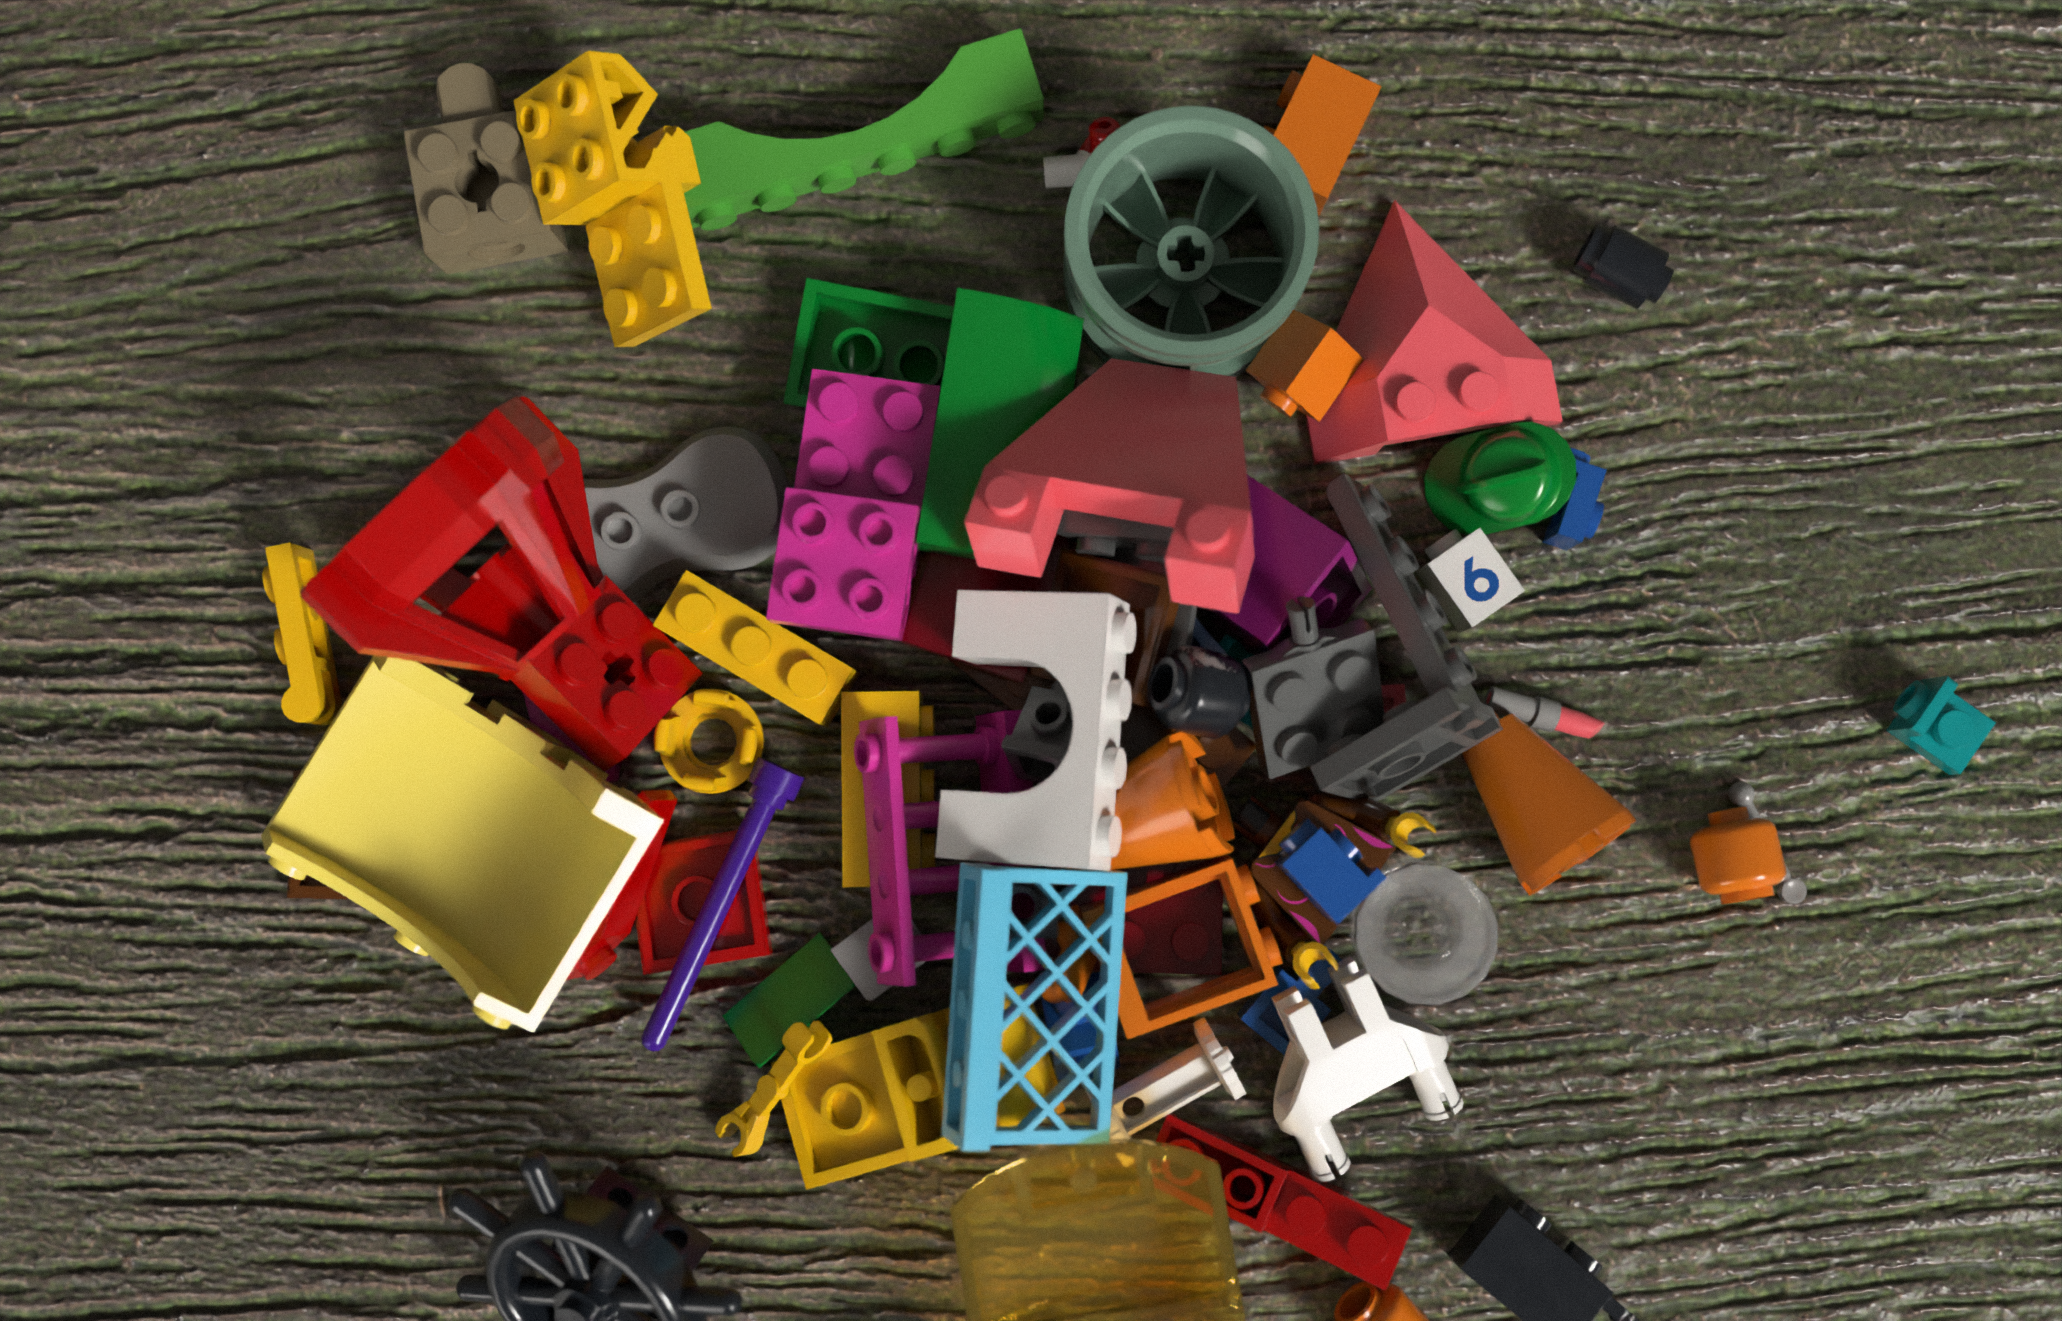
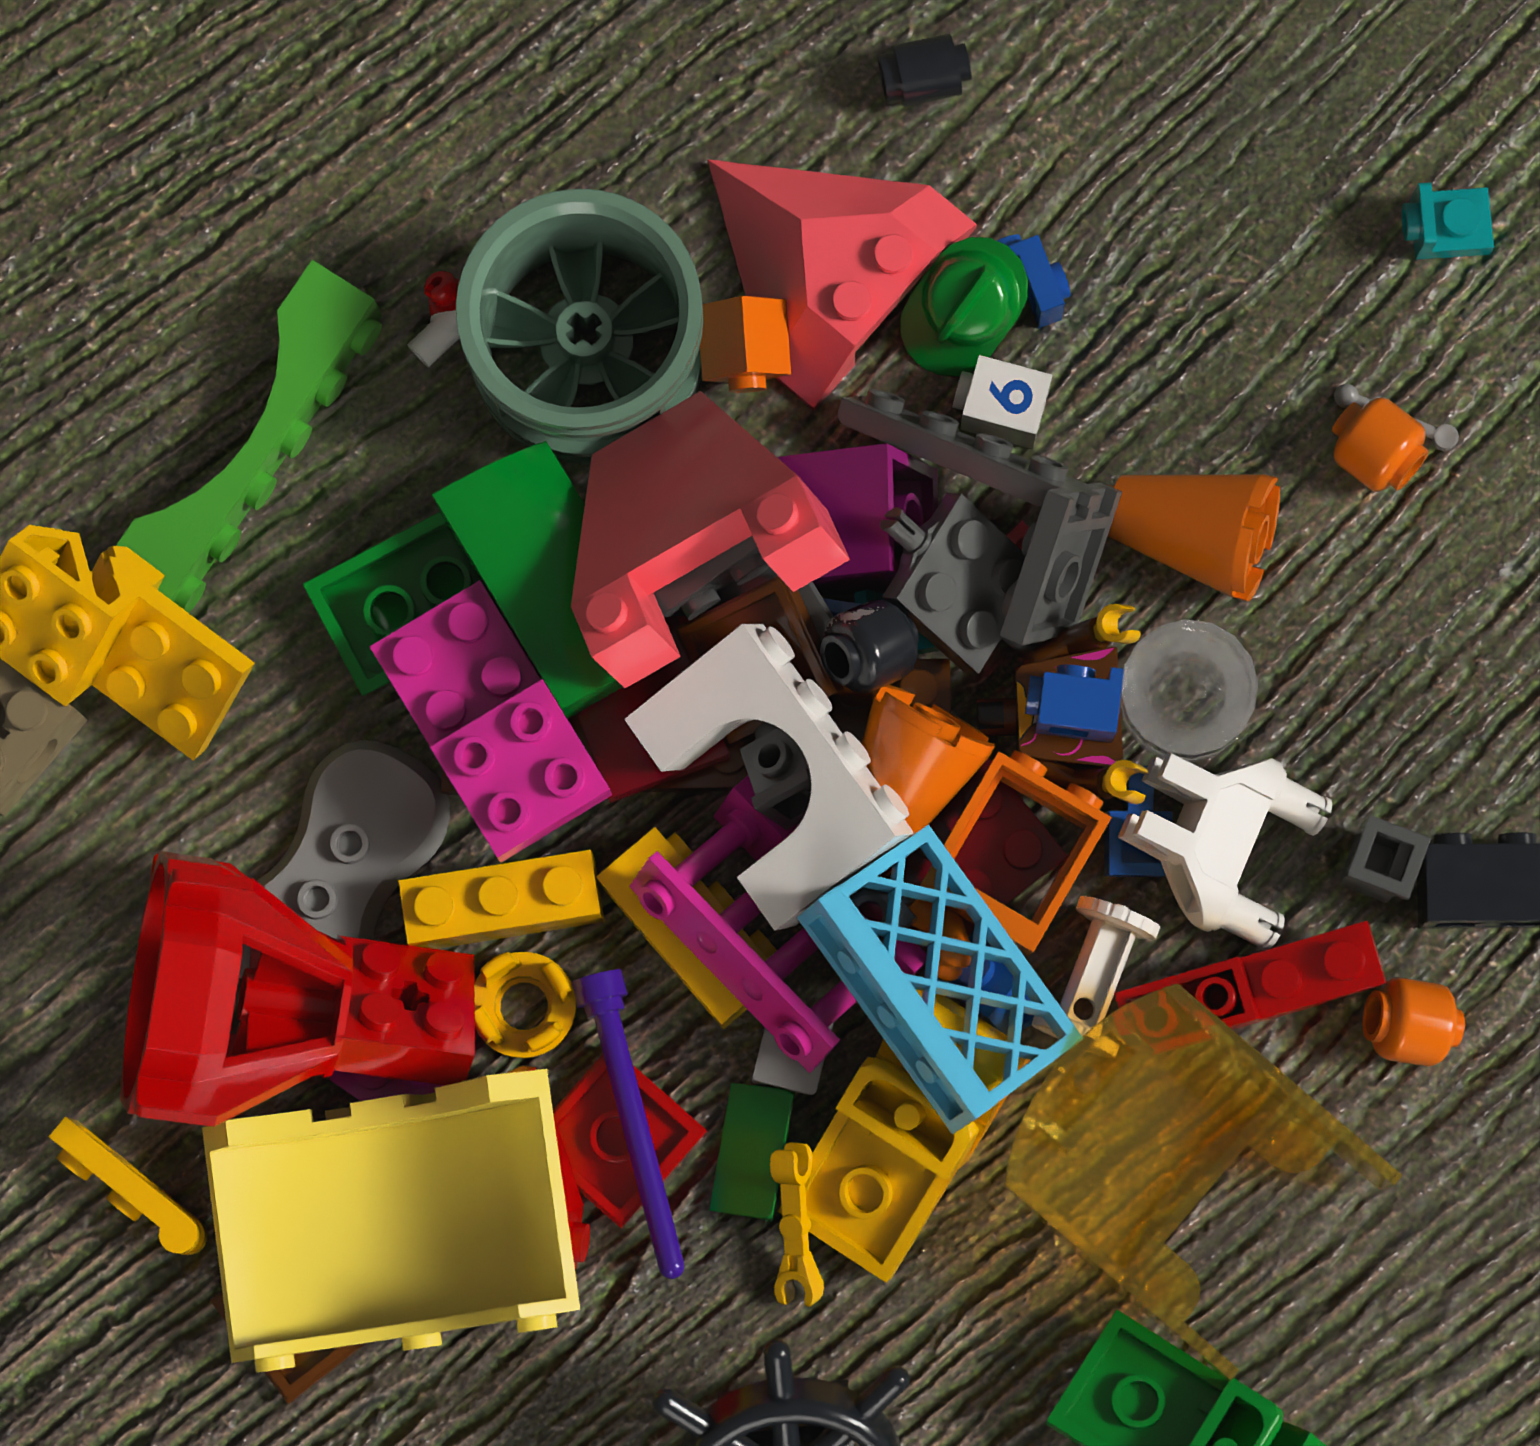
camera: 40 degrees left, 5 degrees down
(1323, 120) = (603, 144): orange brick -> none
(1466, 1190) = (1384, 860): none -> dark grey brick
(1543, 713) = (1147, 456): light grey piece -> none

